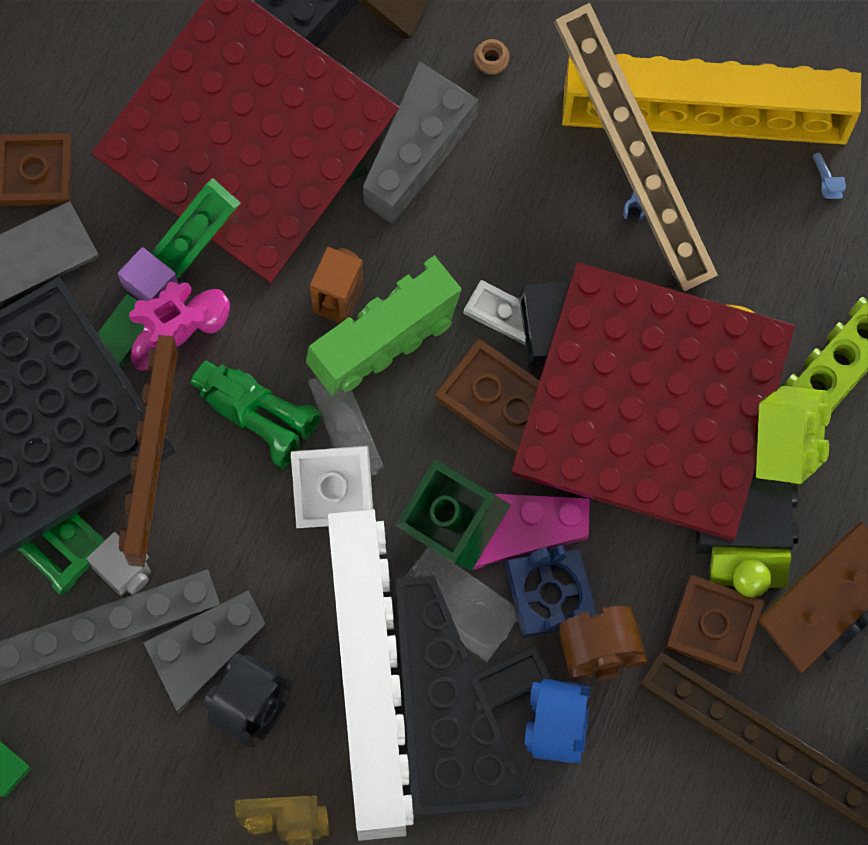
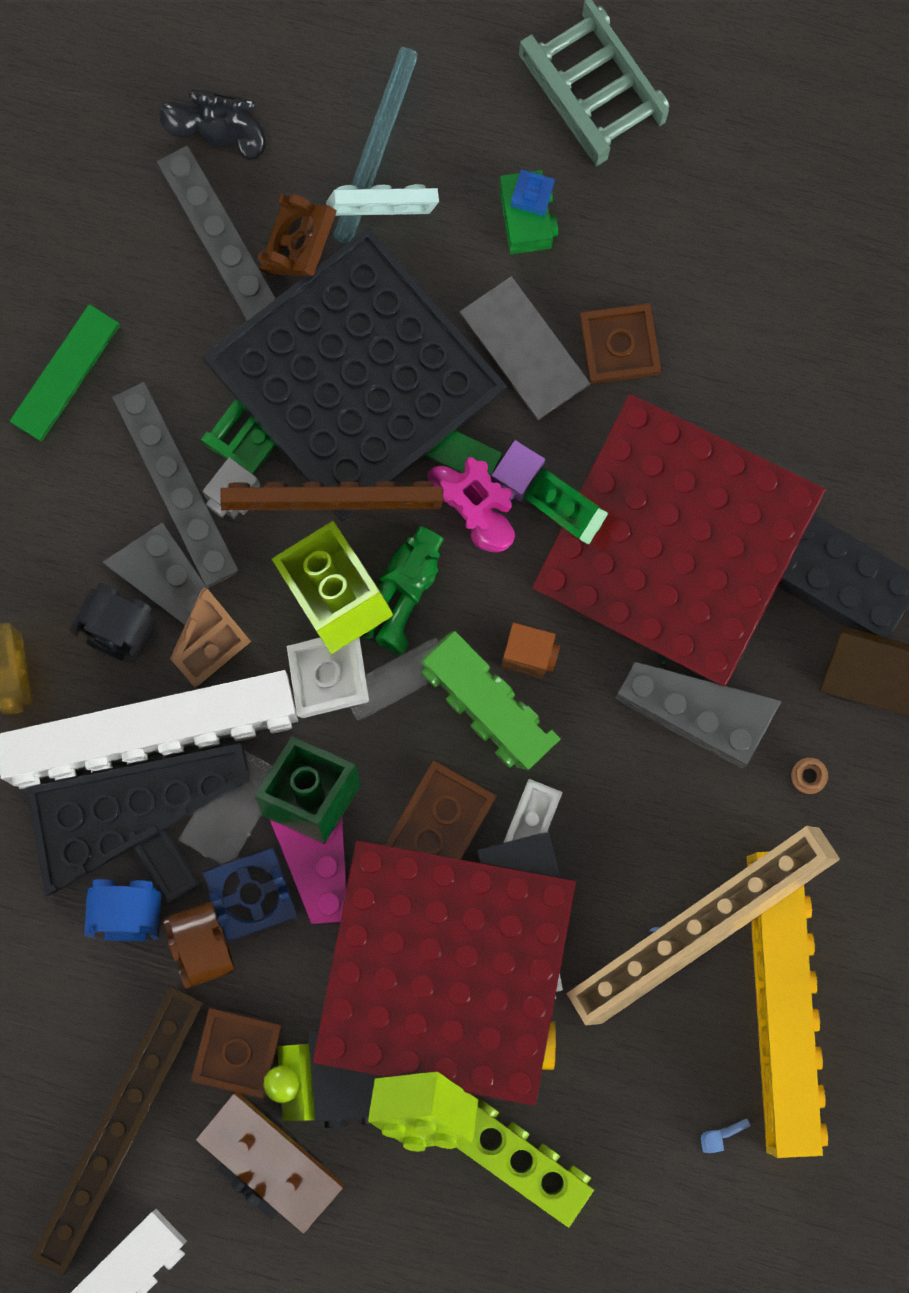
camera: 80 degrees right, 10 degrees up
(243, 464) = (332, 587): none -> lime brick
(278, 606) = (207, 640): none -> medium nougat wing

